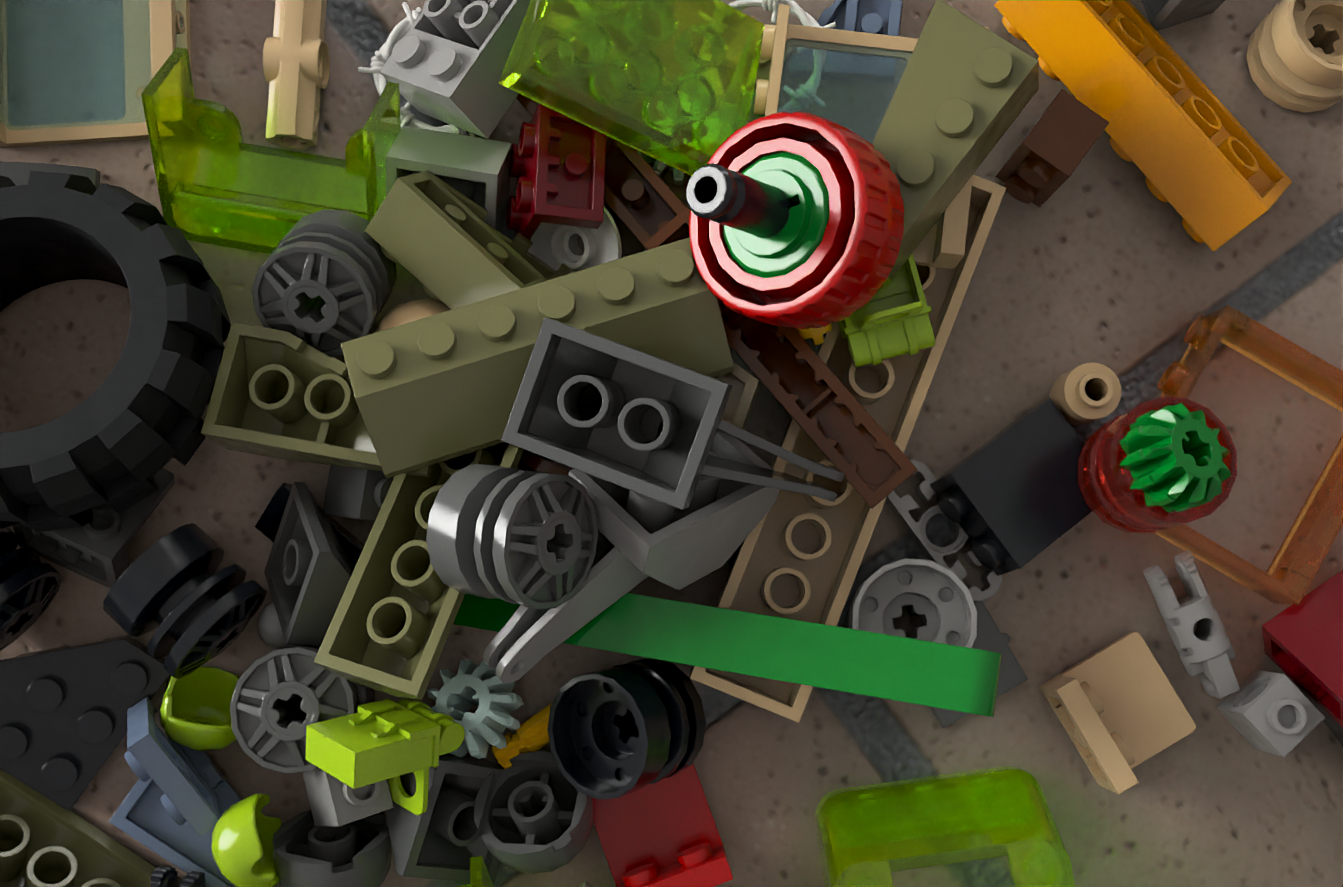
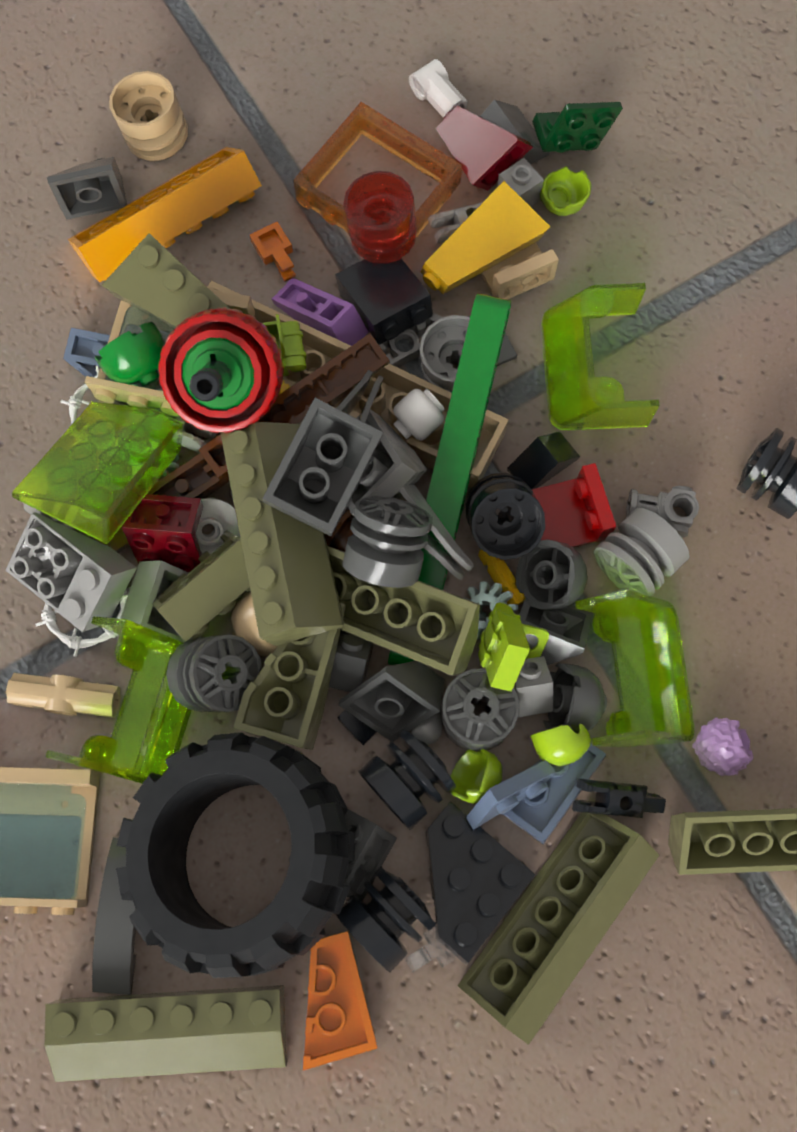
camera: 85 degrees left, 10 degrees down
(749, 786) = (543, 459): none -> black slope
(781, 567) = (418, 414): none -> white head
(831, 77) = (133, 356): none -> green cylinder
(979, 382) = (321, 311): none -> medium lavender slope
(1051, 150) = (193, 252): reddish brown brick -> none
(1070, 395) = (333, 256): tan brick -> none
(1098, 286) = (274, 247): none -> orange plate
(1157, 664) = (487, 237): none -> yellow slope
(1175, 458) = (378, 196): green gear -> none
(1273, 798) = (565, 191): none -> lime hair

